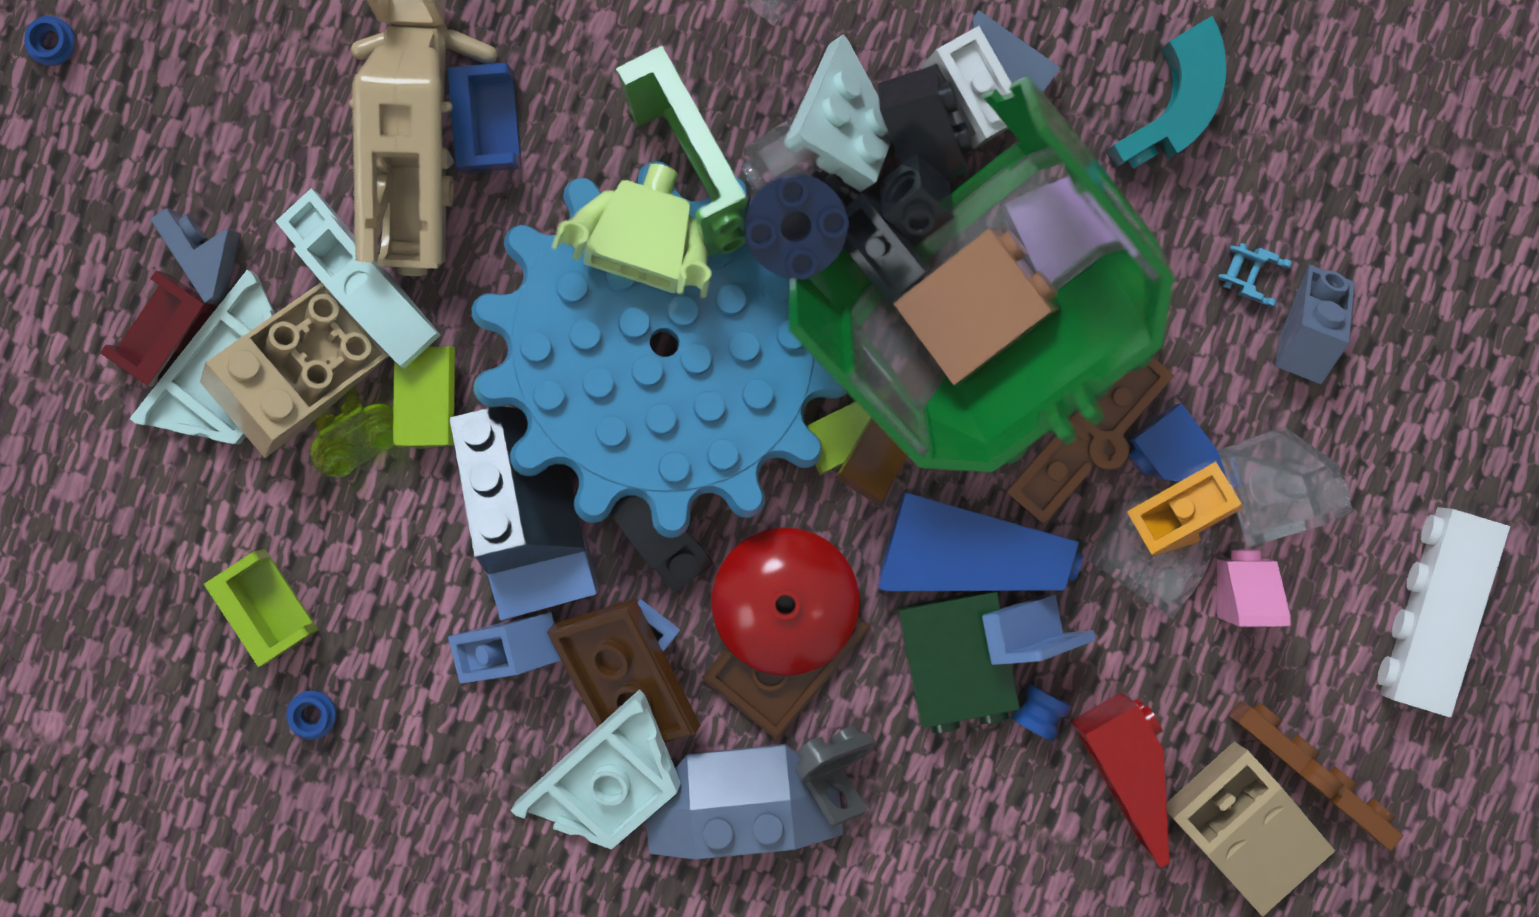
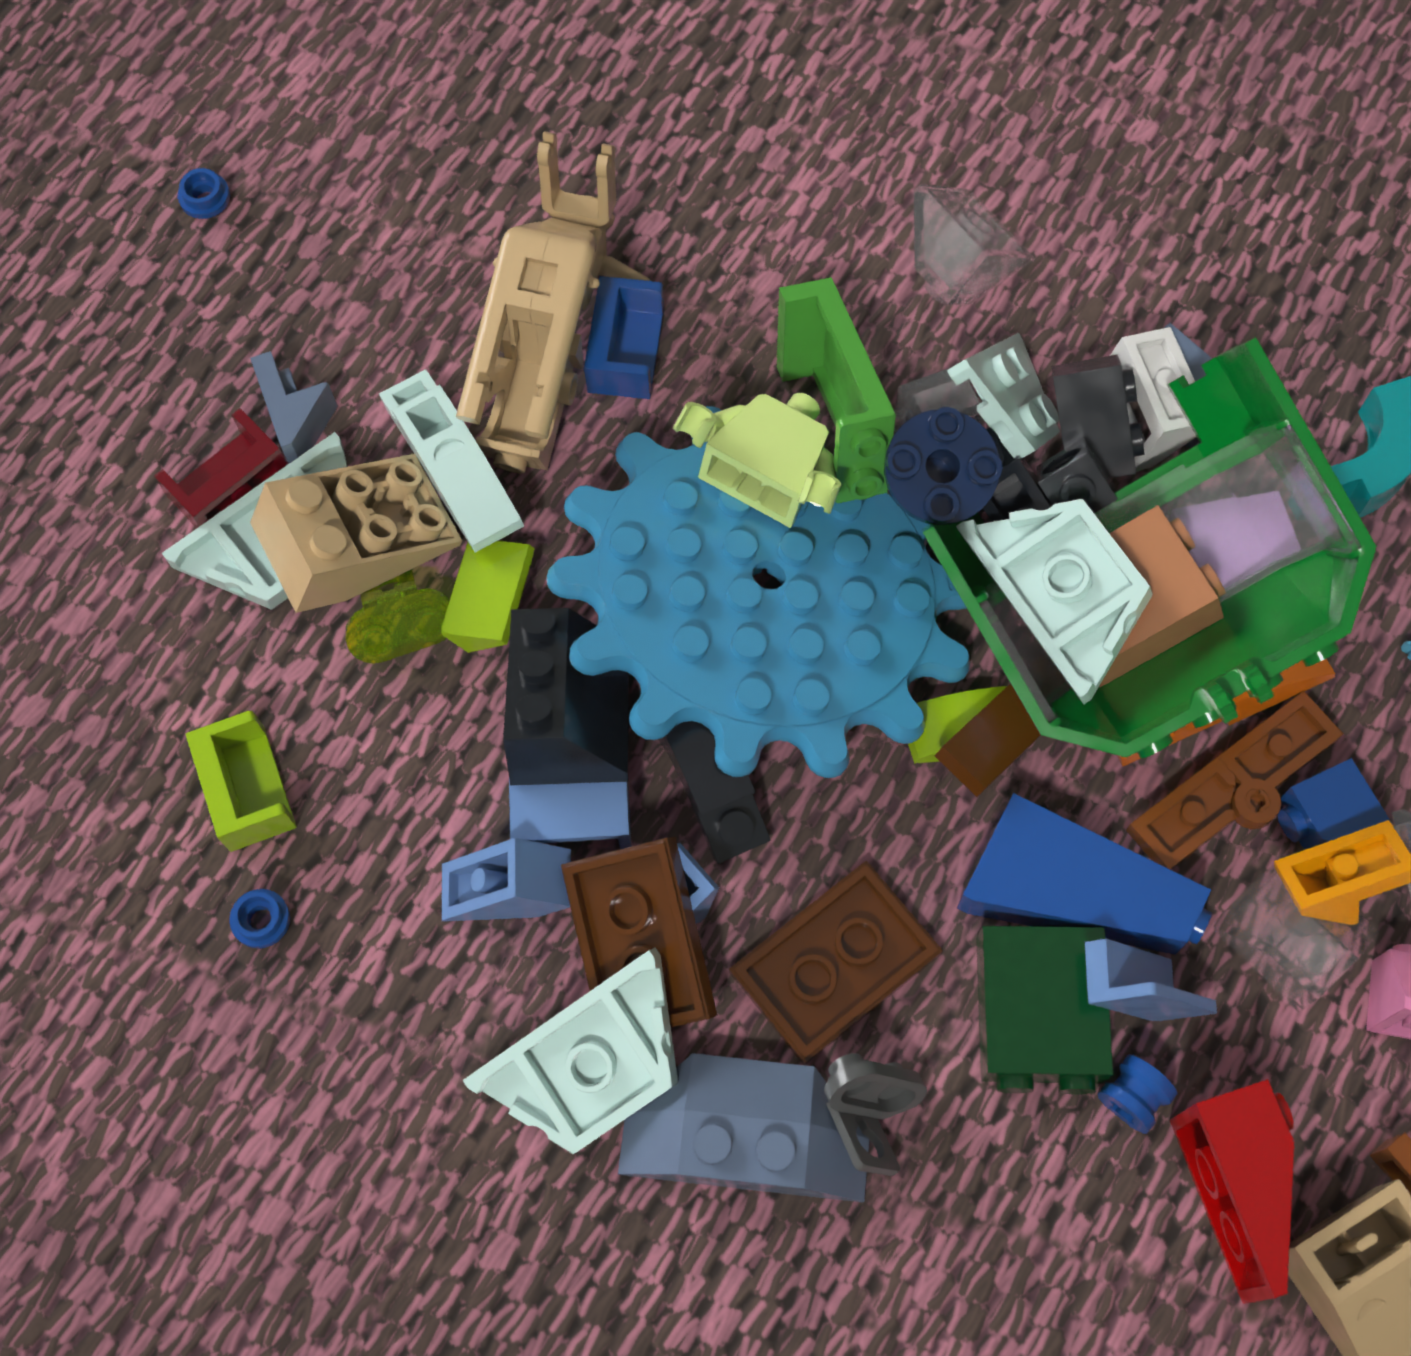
camera: 15 degrees right, 20 degrees down
(792, 565) = (841, 935): red dish -> none
(918, 316) = (1065, 585): none -> light aqua wing

